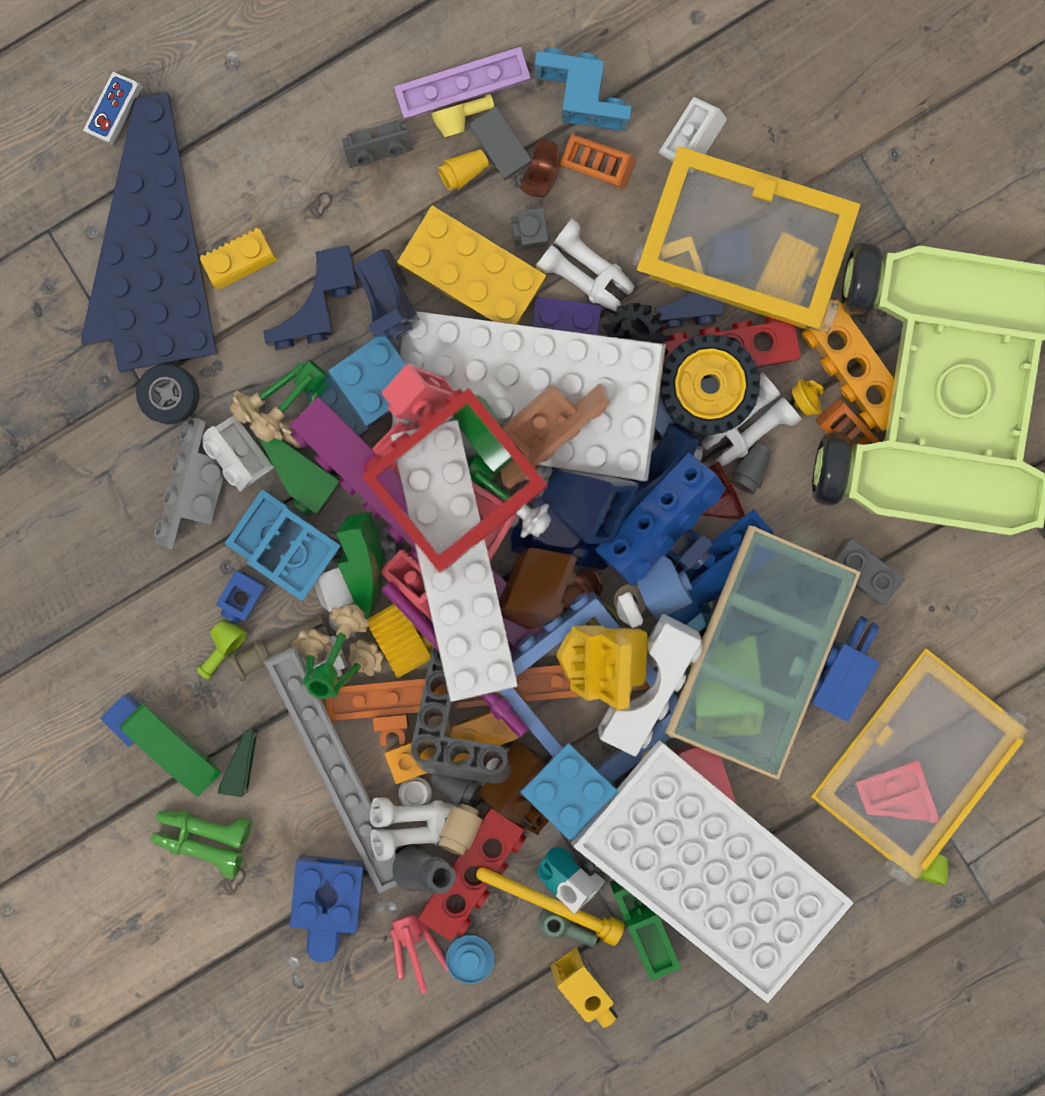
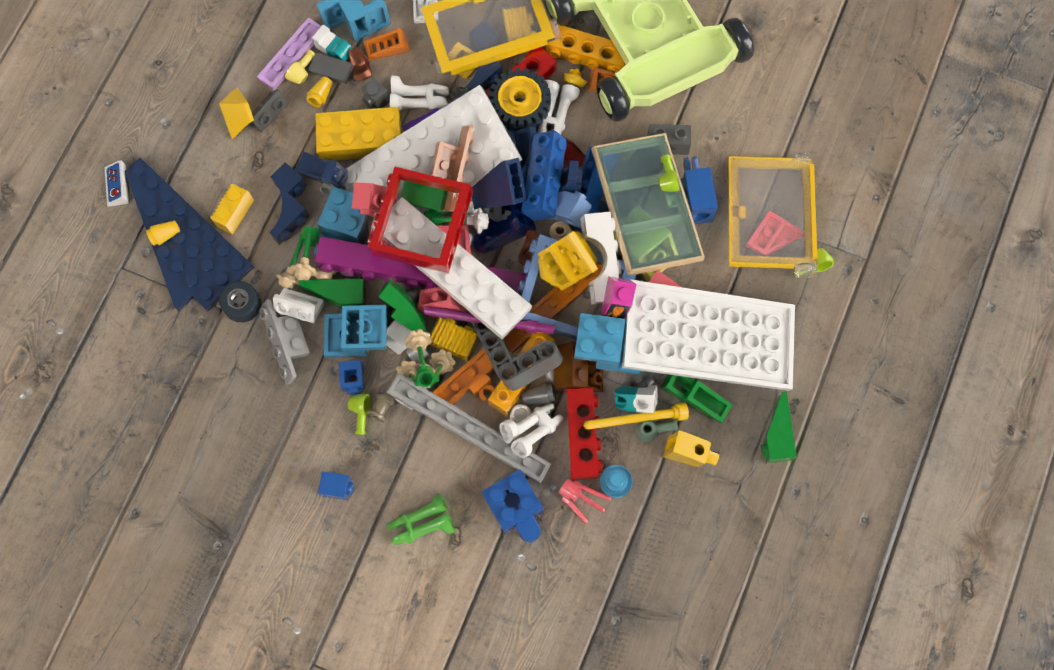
camera: 30 degrees left, 15 degrees down
(126, 229) = (162, 232): none -> yellow cone
(170, 749) = (368, 482): green slope -> none
(238, 774) = (415, 470): dark green slope -> none
(332, 123) = (236, 112): none -> yellow slope
(421, 871) = (554, 450): dark grey plant -> none
(460, 829) = (558, 410): tan brick -> none
(525, 111) = (331, 44): none -> leg
(537, 587) = (505, 252): reddish brown slope -> none
(628, 610) = (560, 229): white tile -> none
(629, 757) = (618, 297): none -> dark pink slope
(707, 1045) = (779, 438): none -> green slope
(752, 469) = (573, 130): dark grey cone -> none
(809, 647) = (668, 181): none -> lime bar

